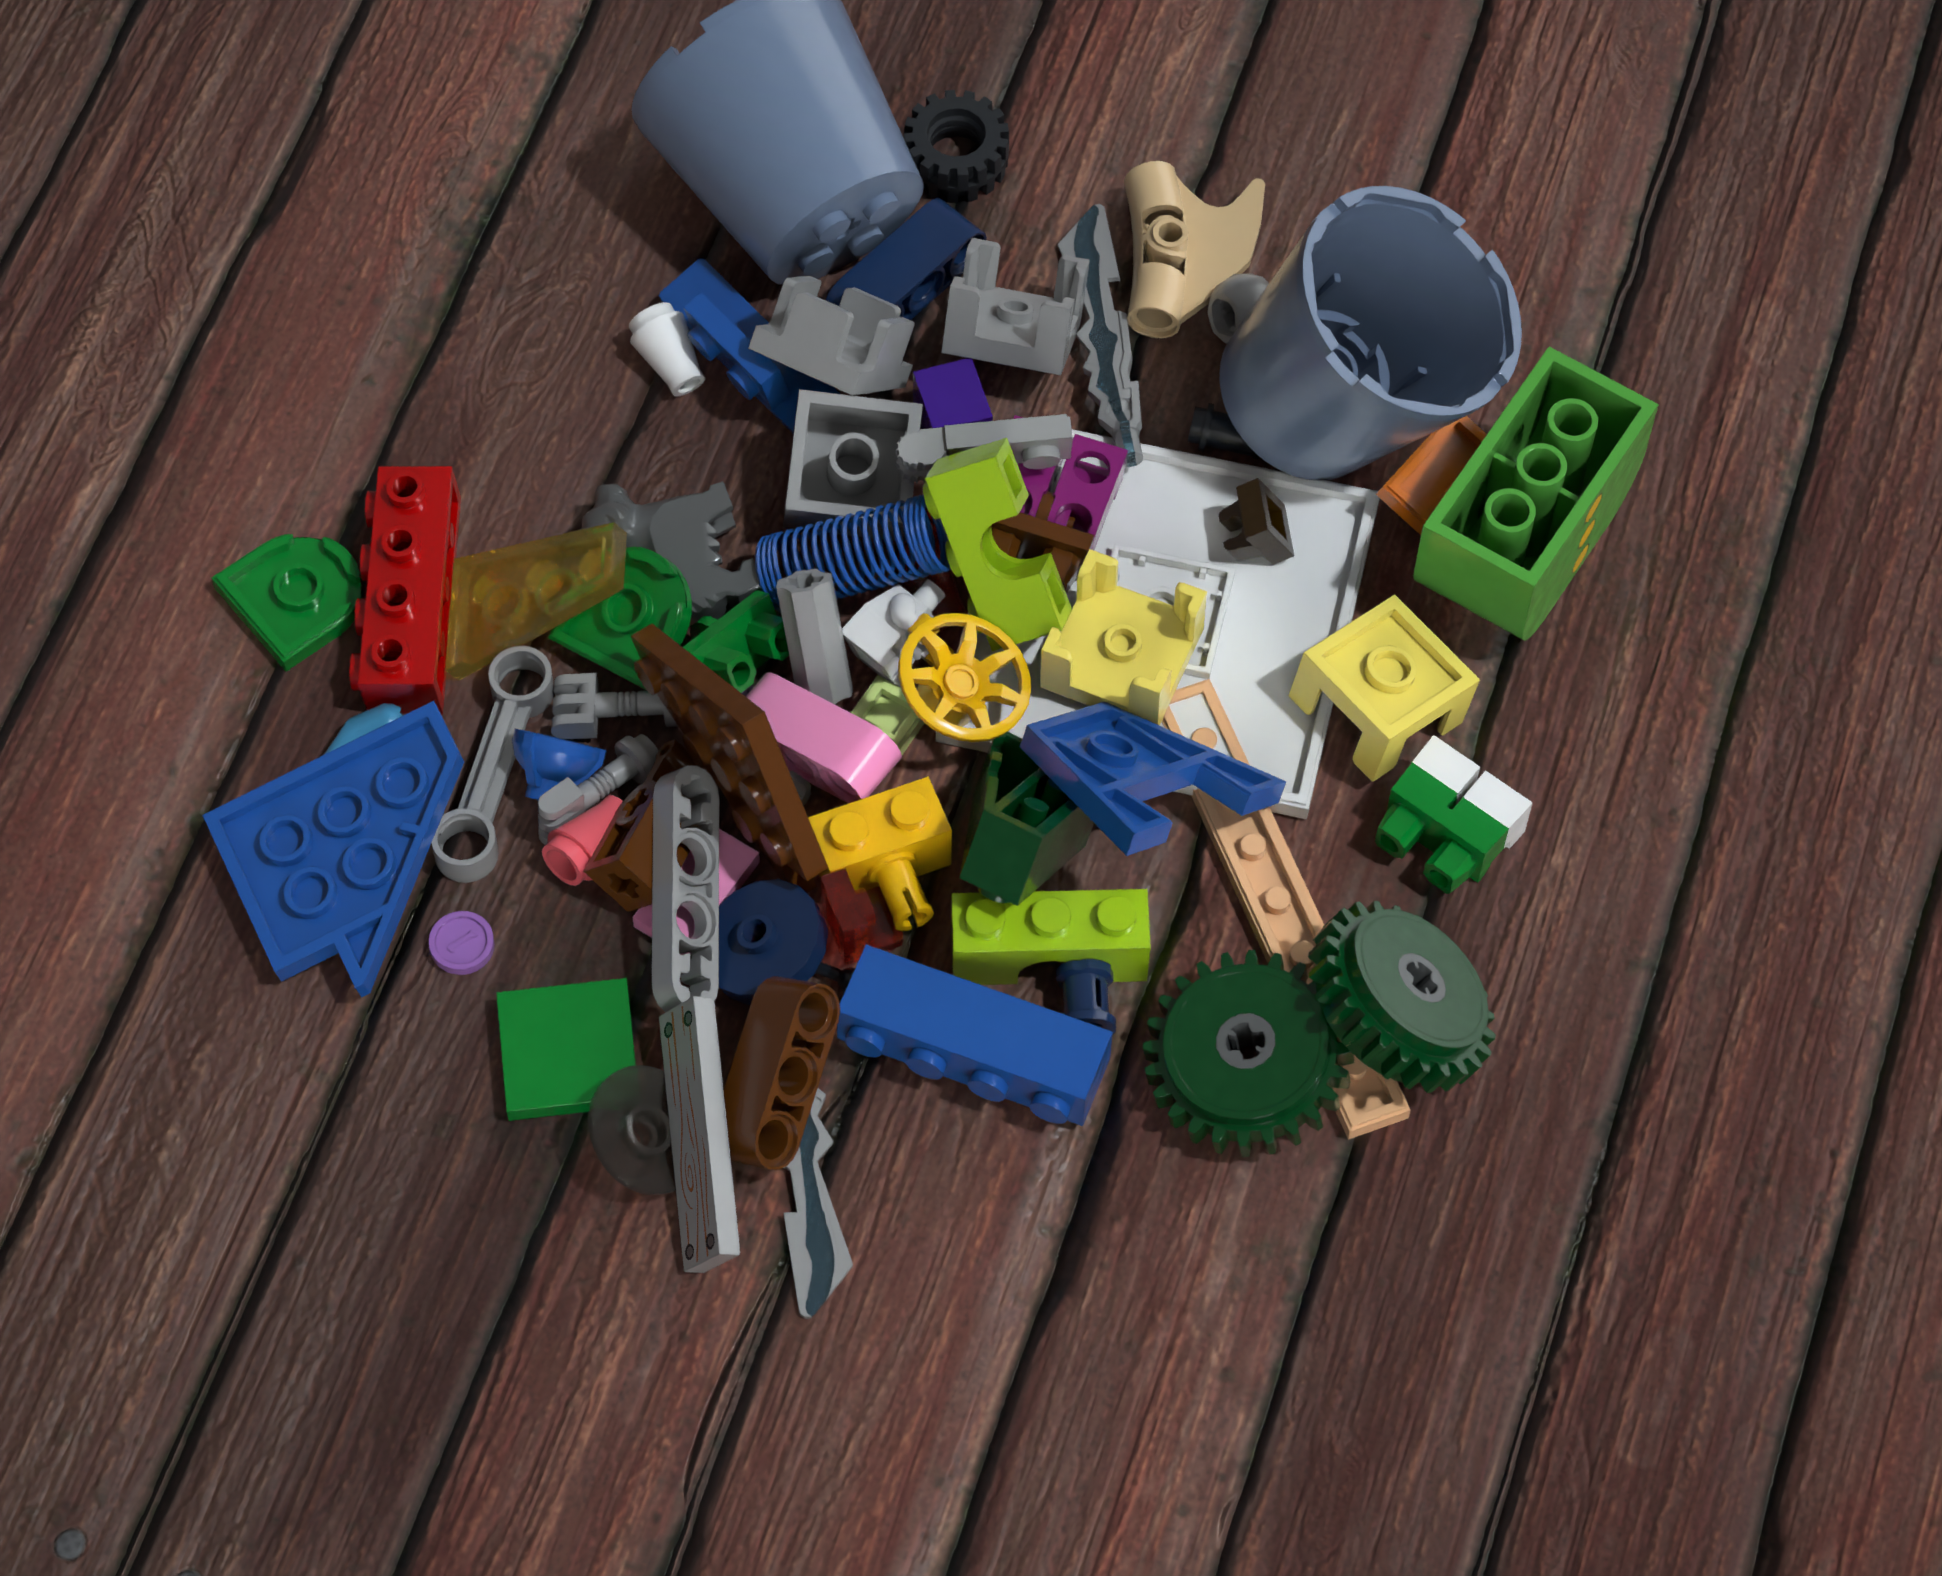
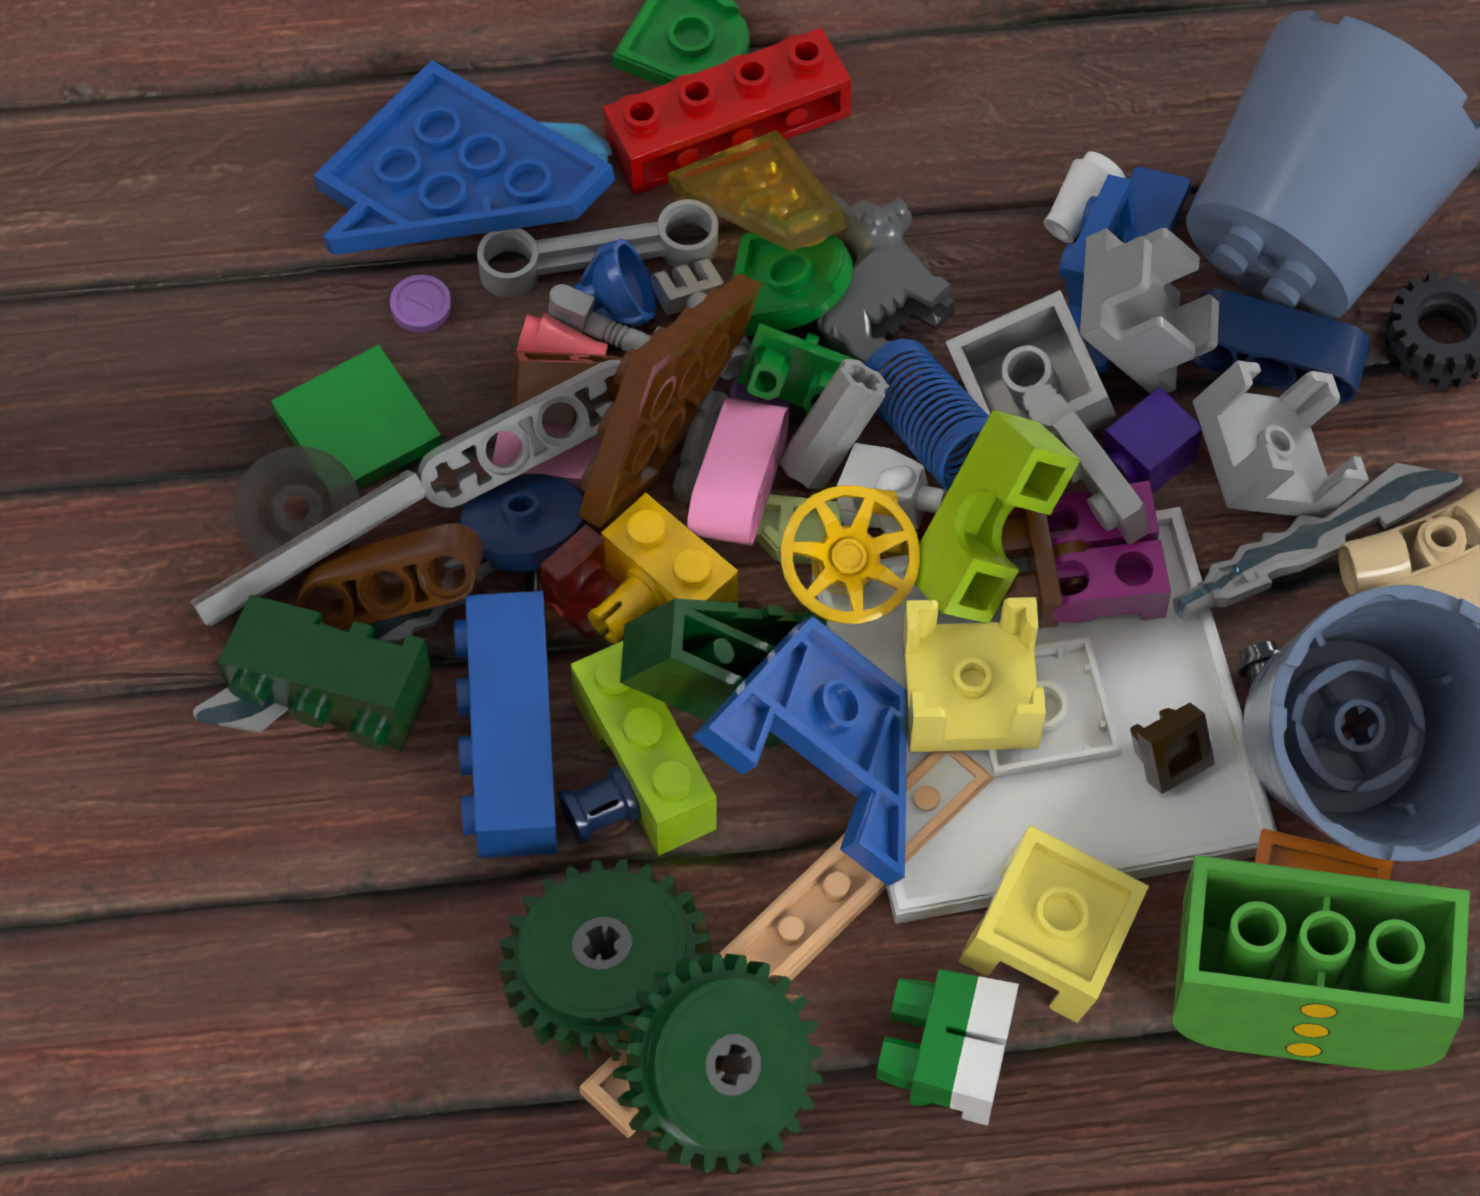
camera: 65 degrees right, 0 degrees up
(845, 1167) = (327, 673): none -> dark green wedge

